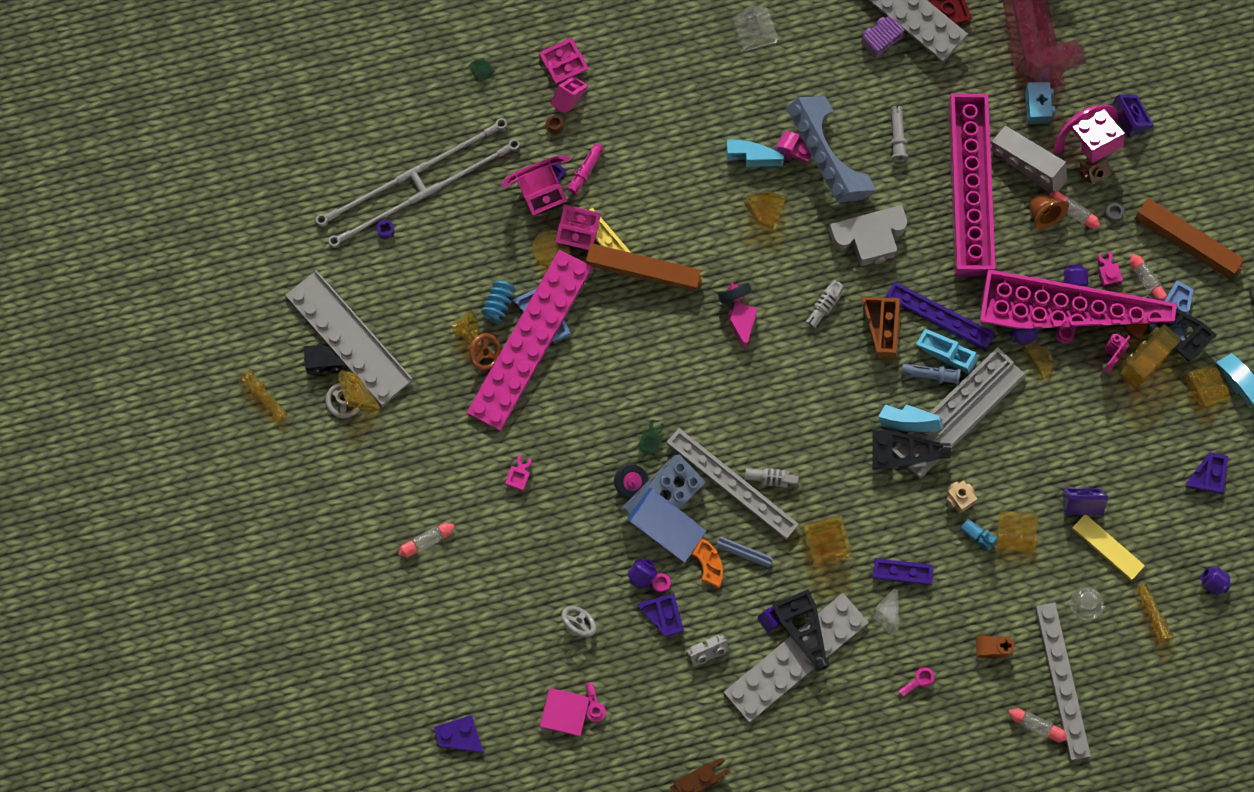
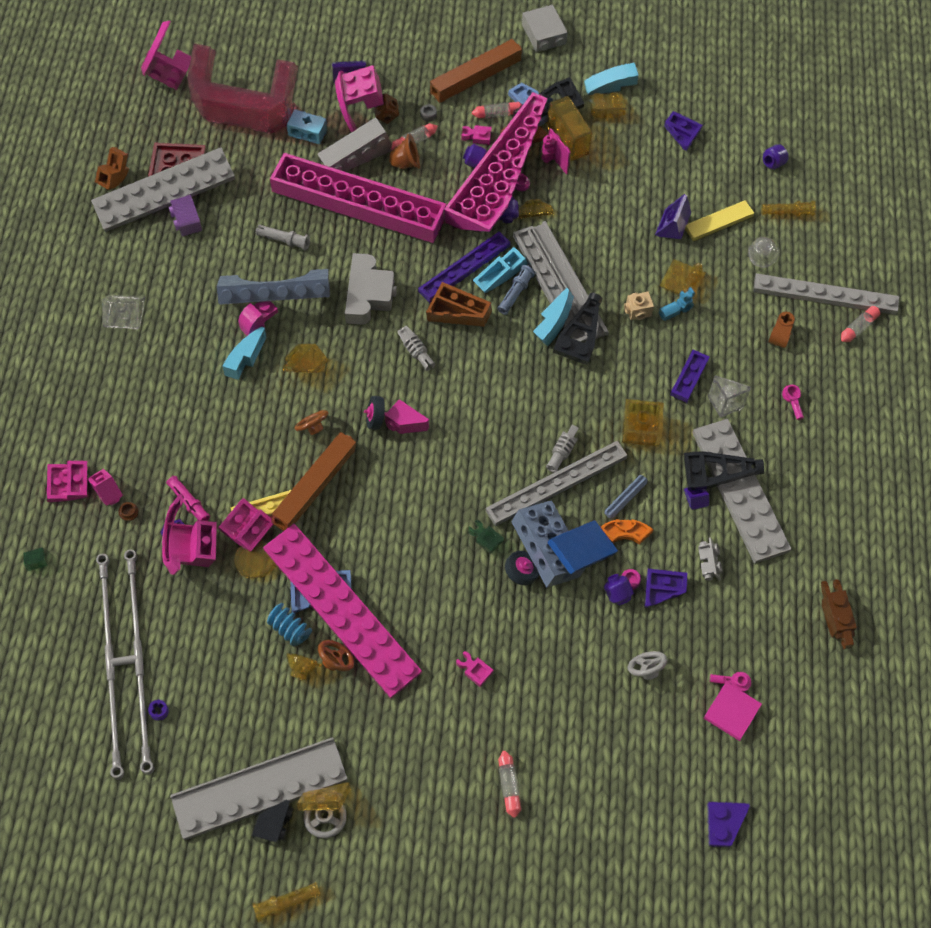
camera: 70 degrees left, 10 degrees down
(703, 241) = (312, 422): none -> dark orange piece

